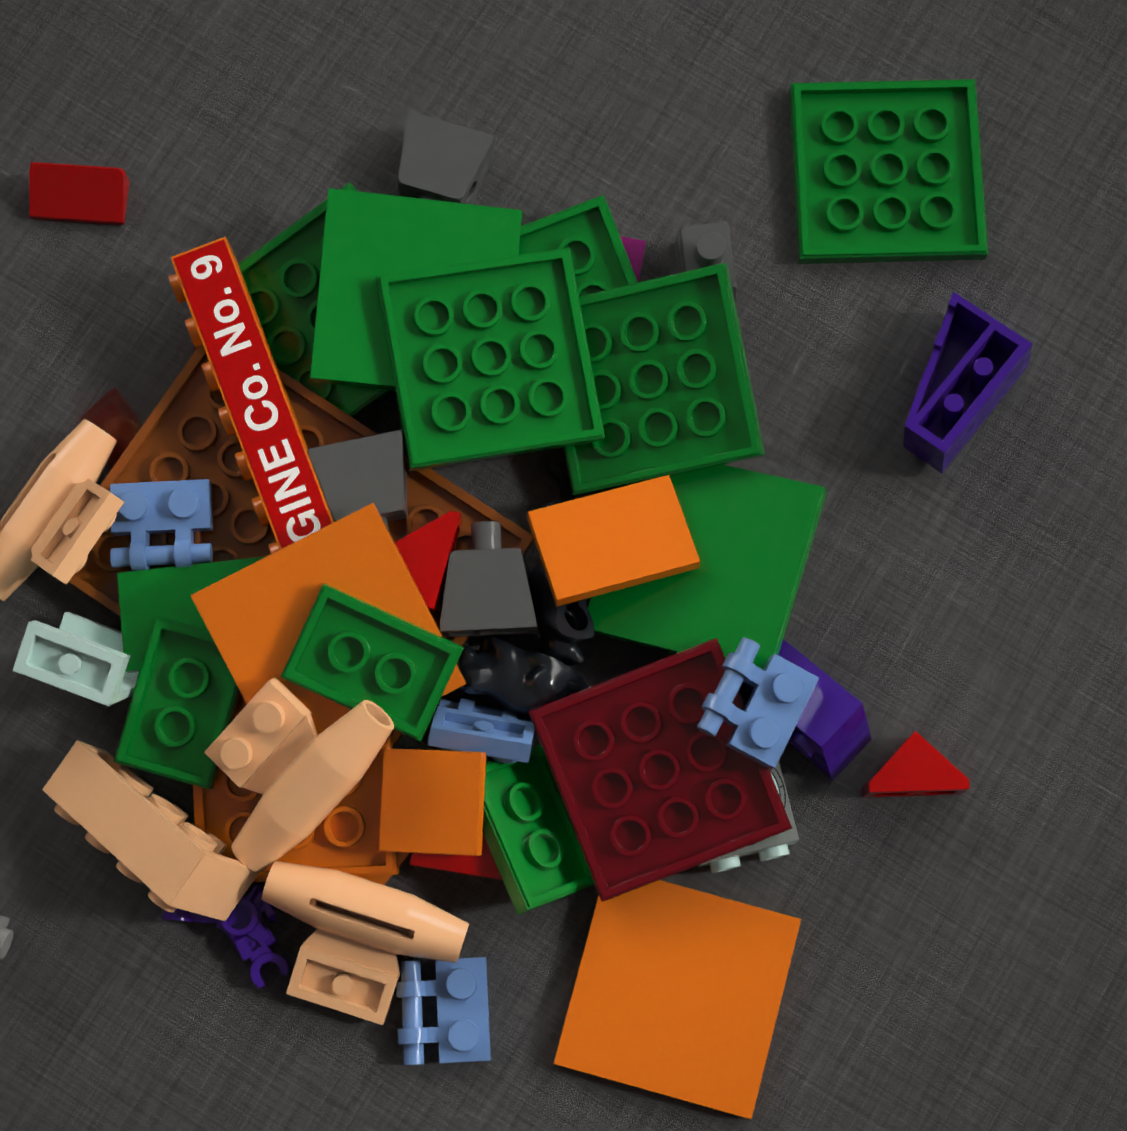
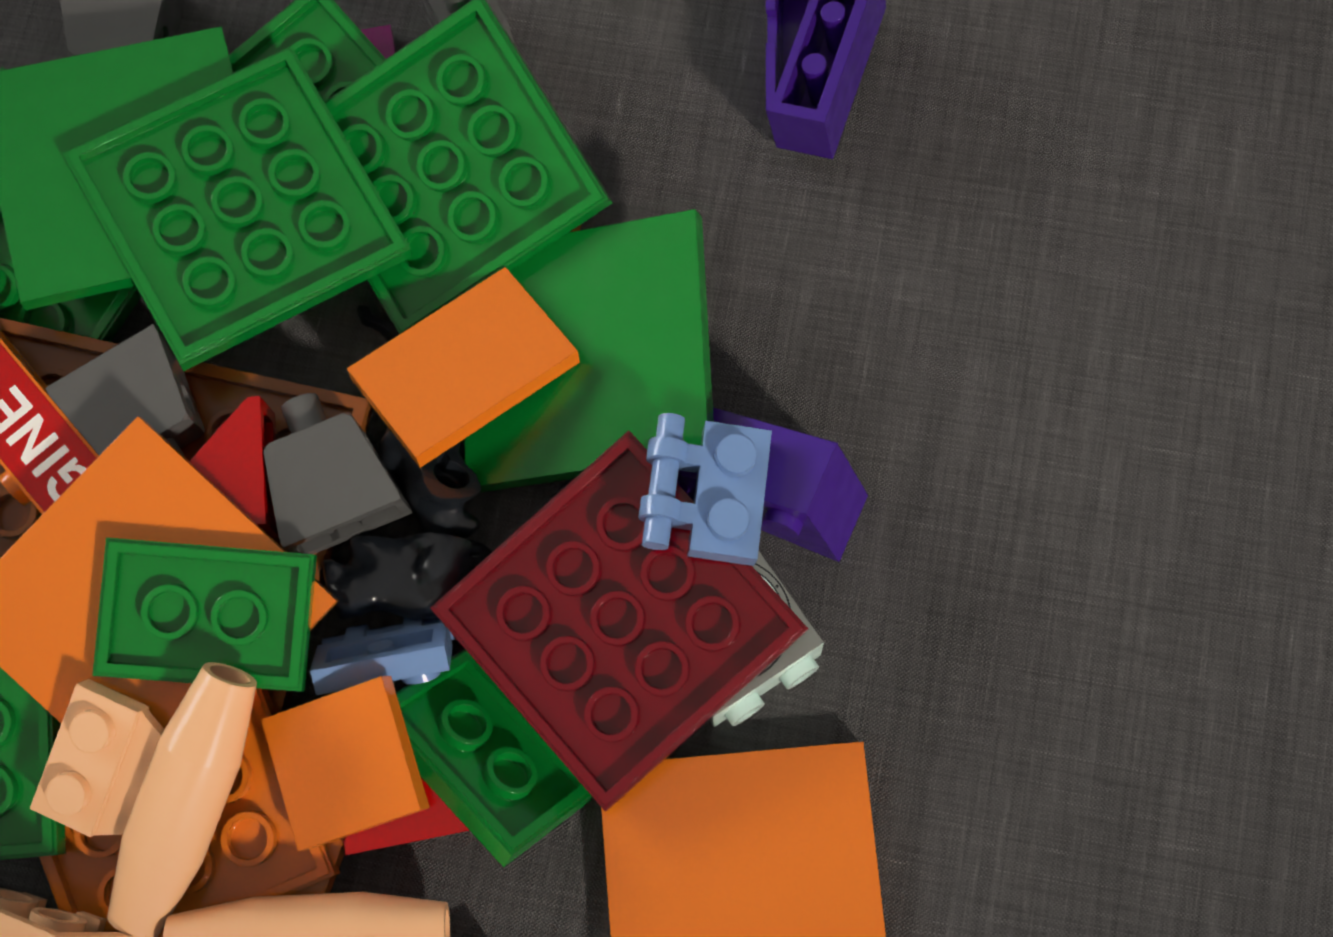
camera: 10 degrees left, 5 degrees down
(916, 771) = (937, 510): red slope -> none

